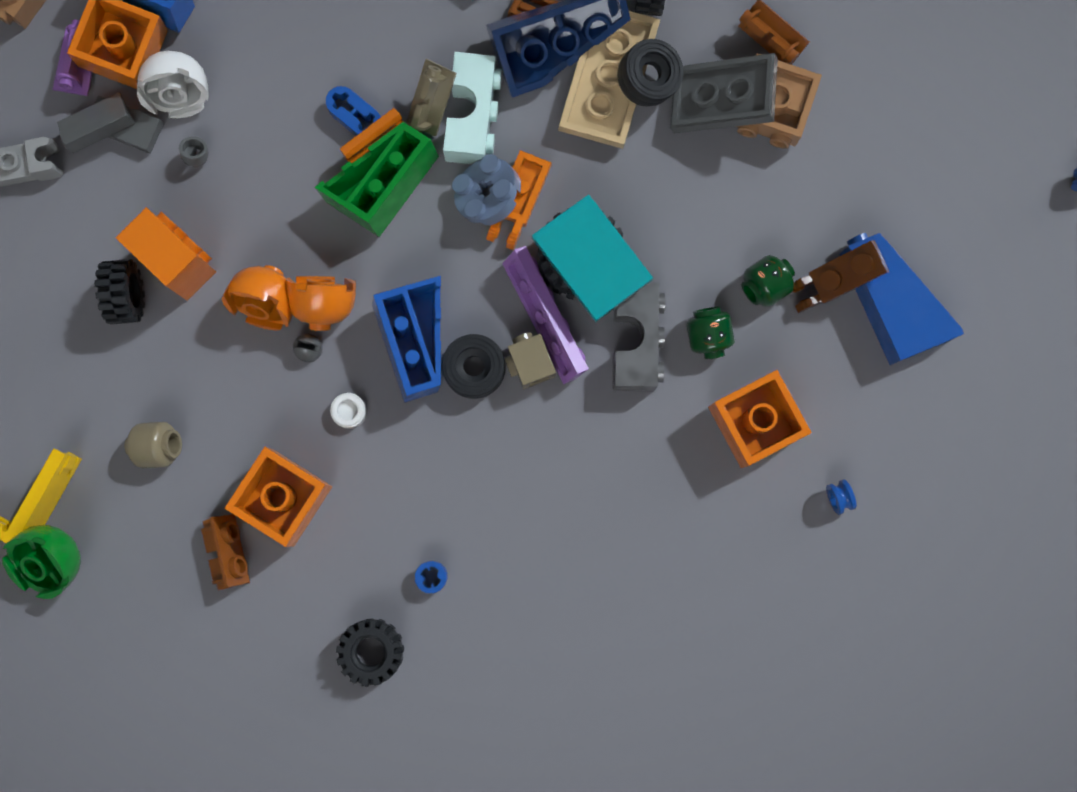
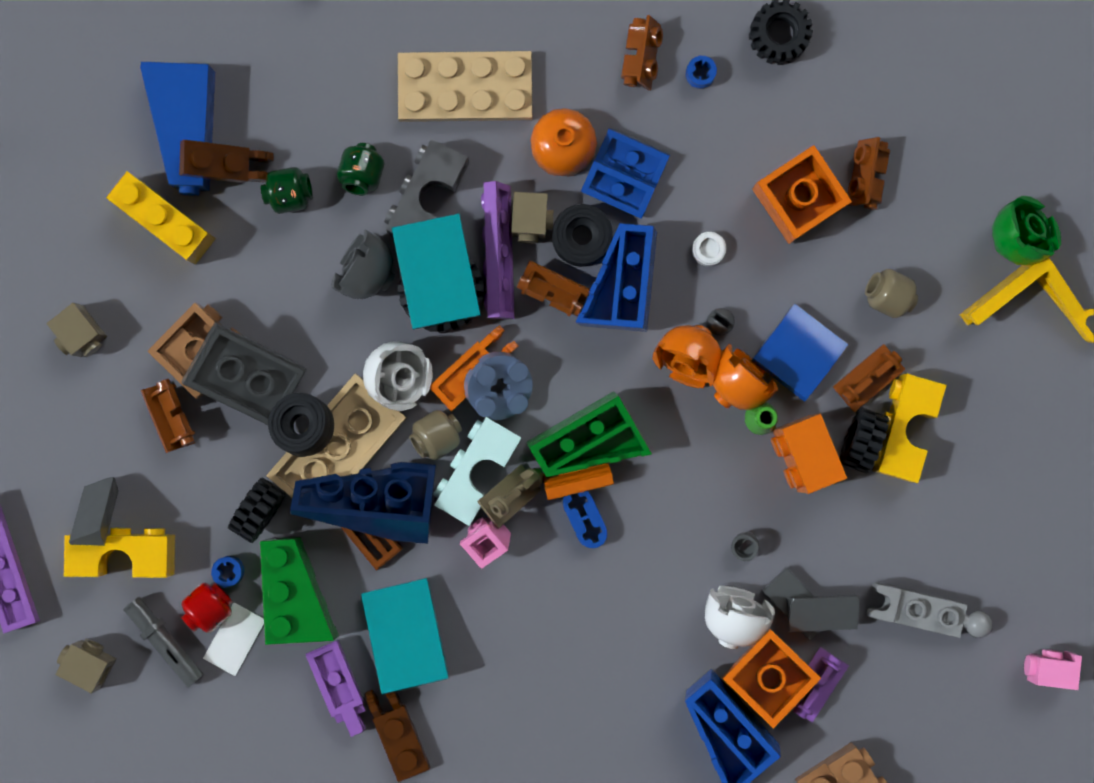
camera: 155 degrees left, 5 degrees up
(93, 352) = (910, 398): none -> yellow arch
(143, 358) = (869, 377): none -> dark orange hinge
(219, 351) = (799, 352): none -> blue slope
(223, 270) = (753, 421): none -> bright green cone
(438, 47) = (486, 541): none -> bright pink brick
(459, 445) = (625, 173): none -> blue slope
(461, 302) = (549, 285): none -> dark orange hinge
(498, 584) = (645, 38): none -> dark orange hinge
(524, 123) = (435, 435): none -> dark tan head
(532, 447) = (563, 142): none -> orange cylinder
(584, 155) = (397, 375): none -> white cylinder
(650, 458) = (464, 86): none -> tan plate
(661, 240) = (365, 268): none -> dark grey cylinder
(759, 419) = (356, 71): orange brick -> none
(893, 70) = (76, 331): none -> dark tan brick
(893, 205) = (160, 218): none -> yellow arch

